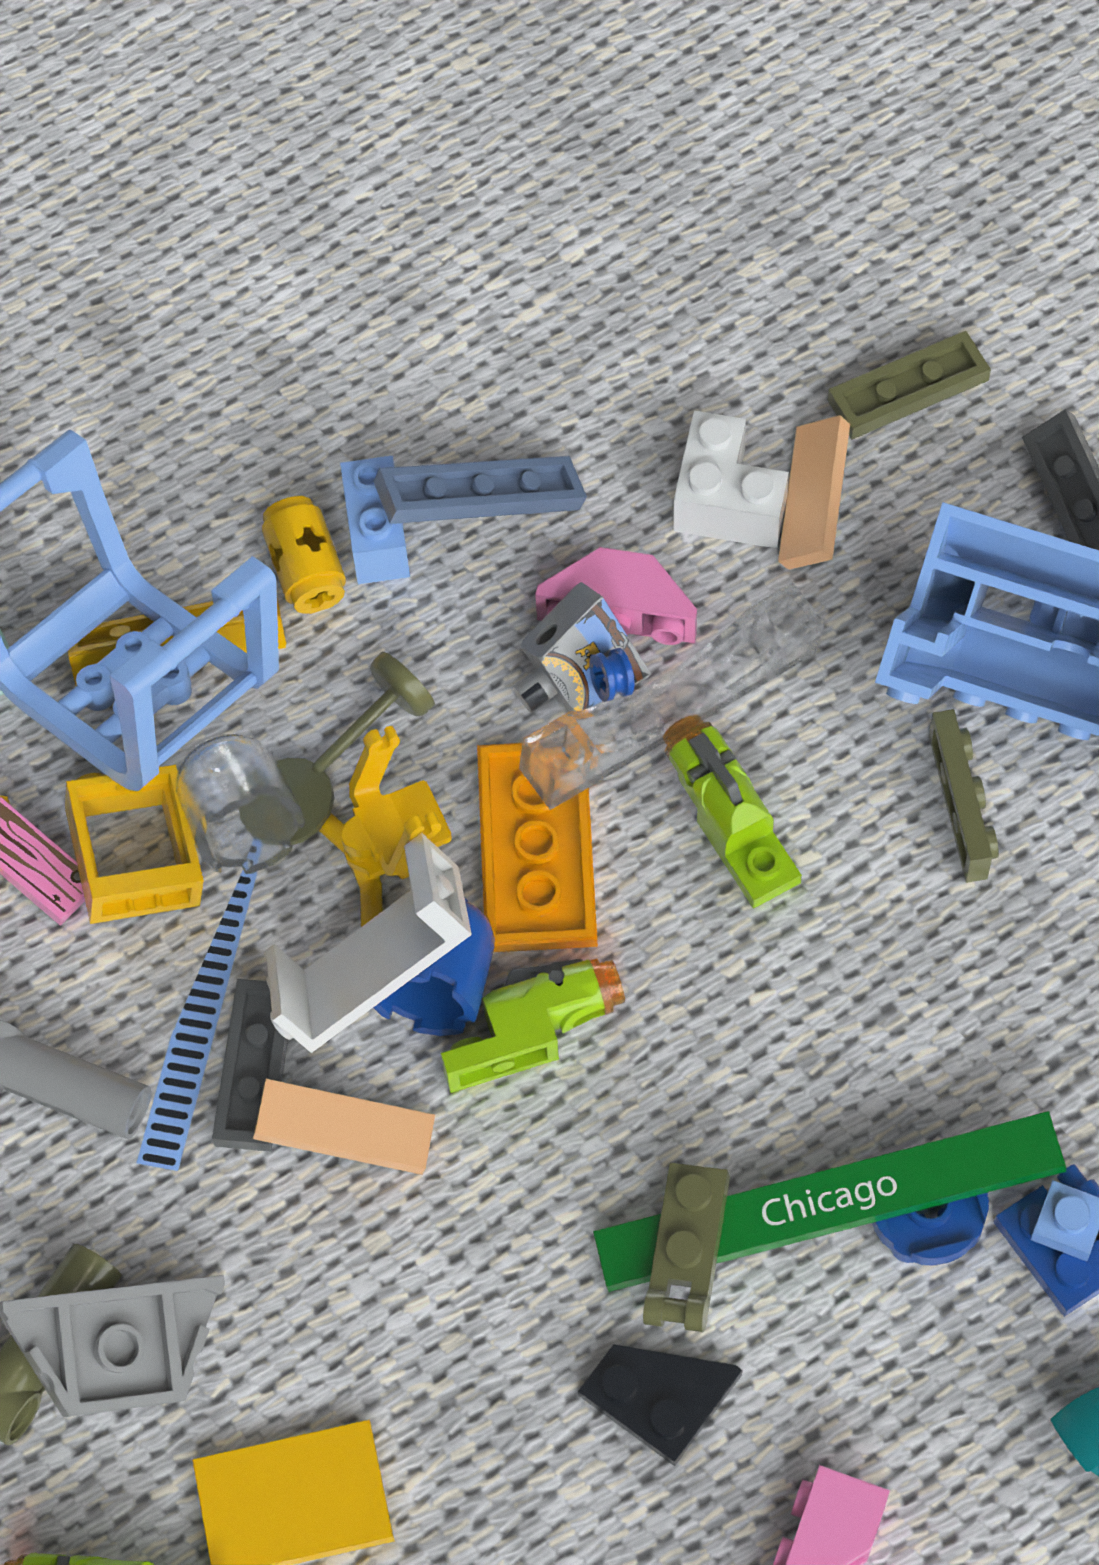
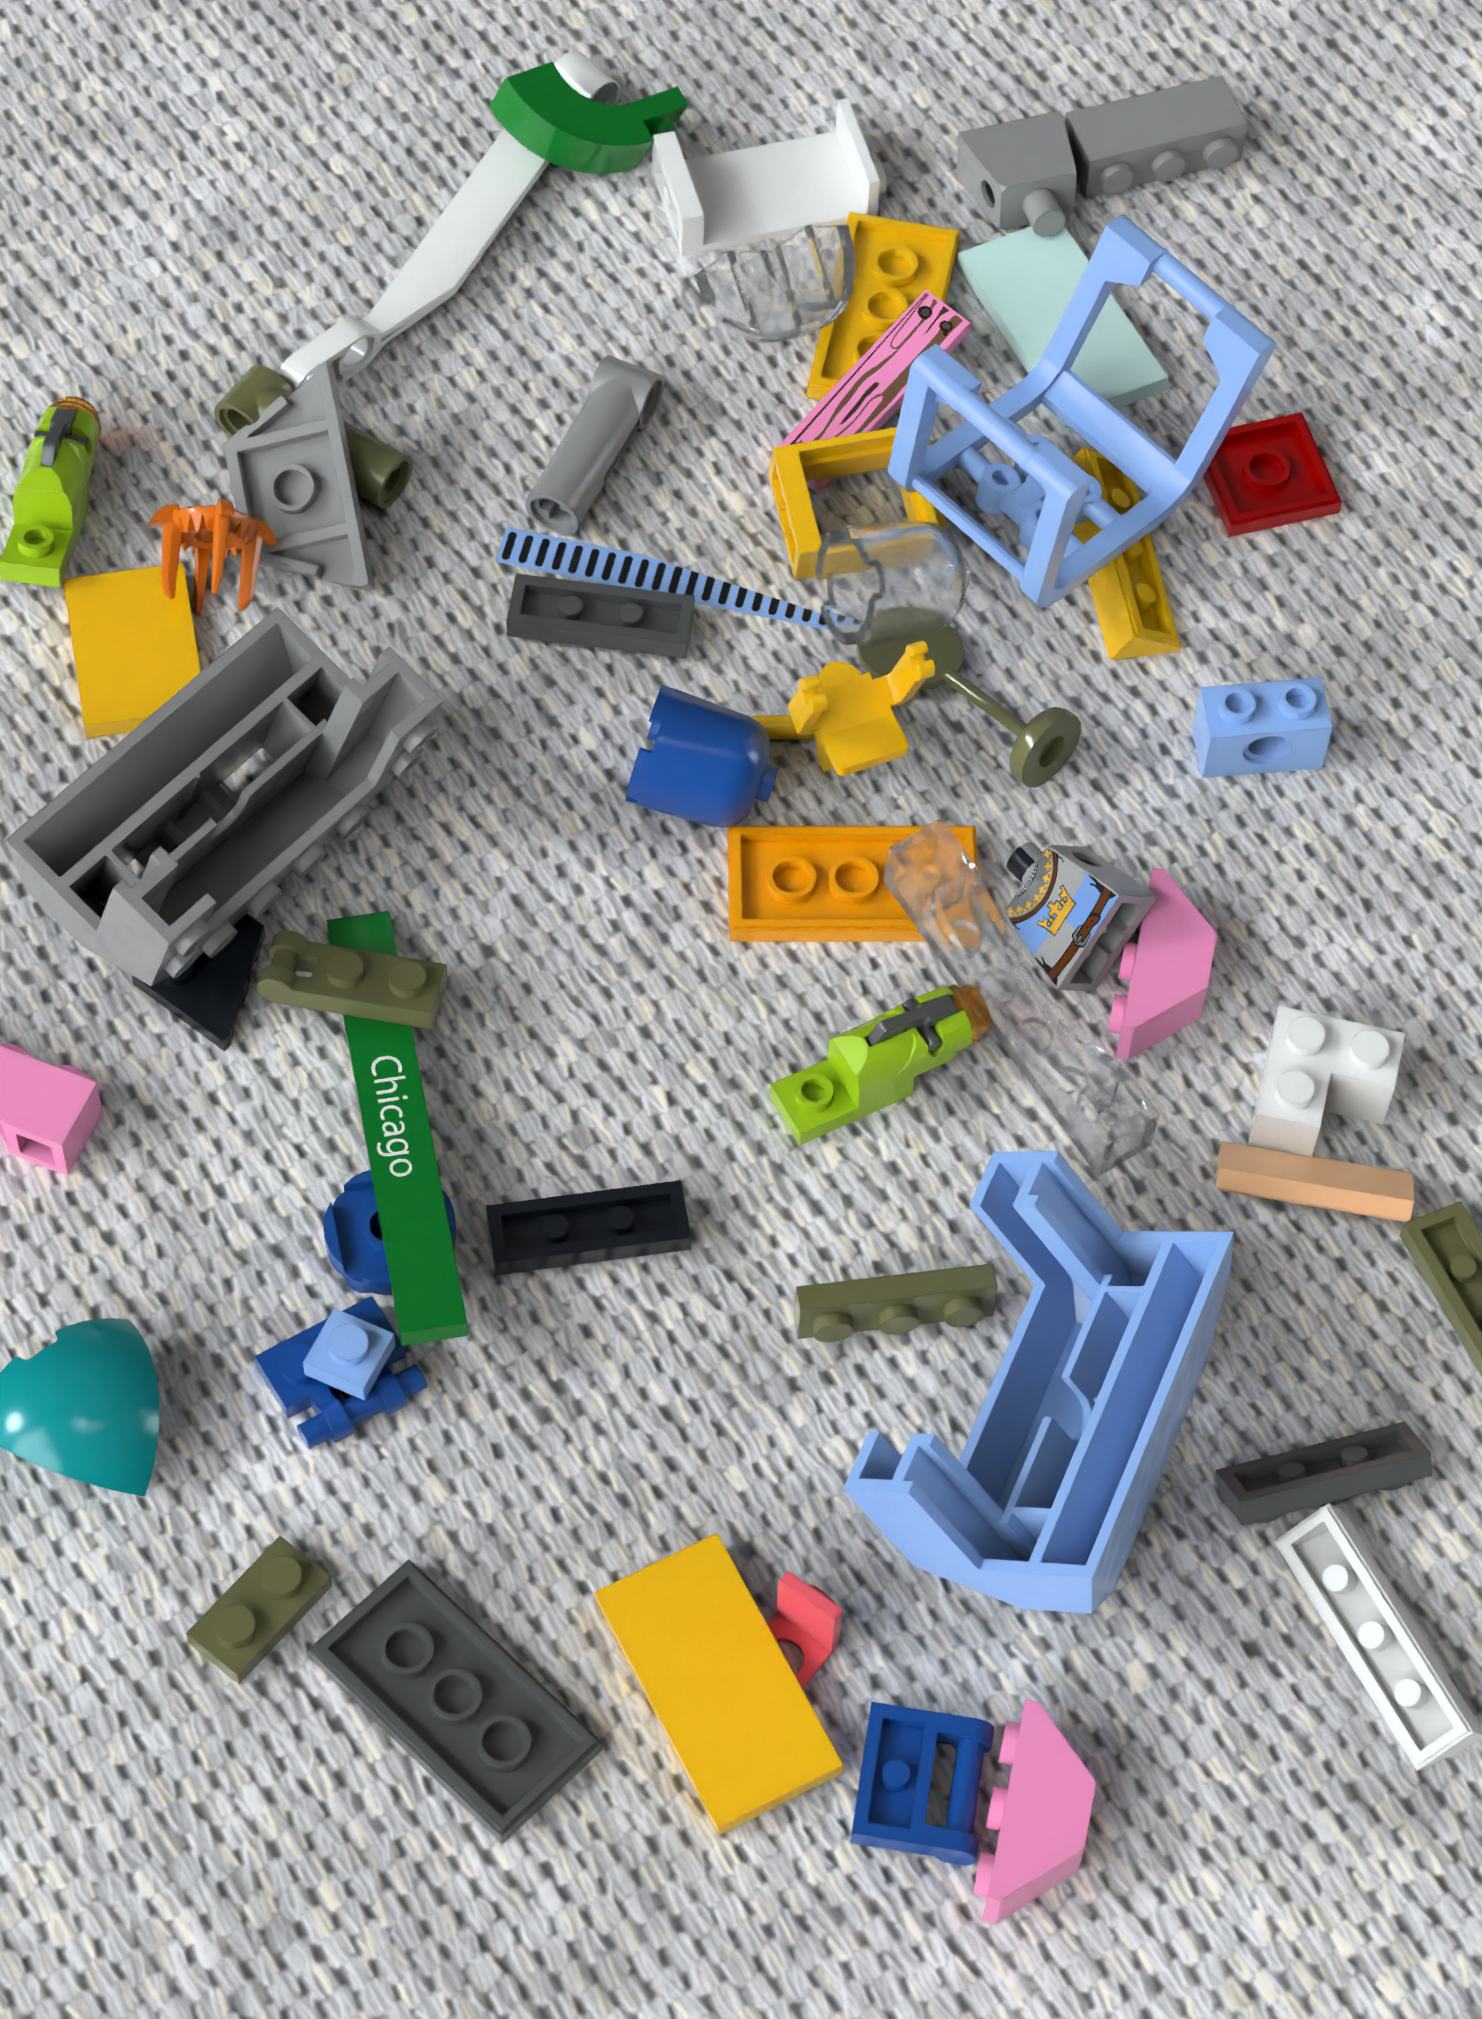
camera: 85 degrees right, 5 degrees down
(61, 531) = (1270, 476): none -> red tile
(175, 1442) = (214, 530): none -> orange piece
(303, 554) = (1244, 644): yellow piece -> none
(344, 1126) = (521, 688): light nougat tile -> none
(374, 959) = (660, 649): white panel -> none
(479, 489) = (1292, 817): sand blue plate -> none
(525, 1018) = (639, 858): lime plate -> none
(532, 1359) = (200, 843): none -> light grey wedge
(611, 674) = (1035, 924): blue bush -> none
(910, 1041) = (588, 1227): none -> black plate

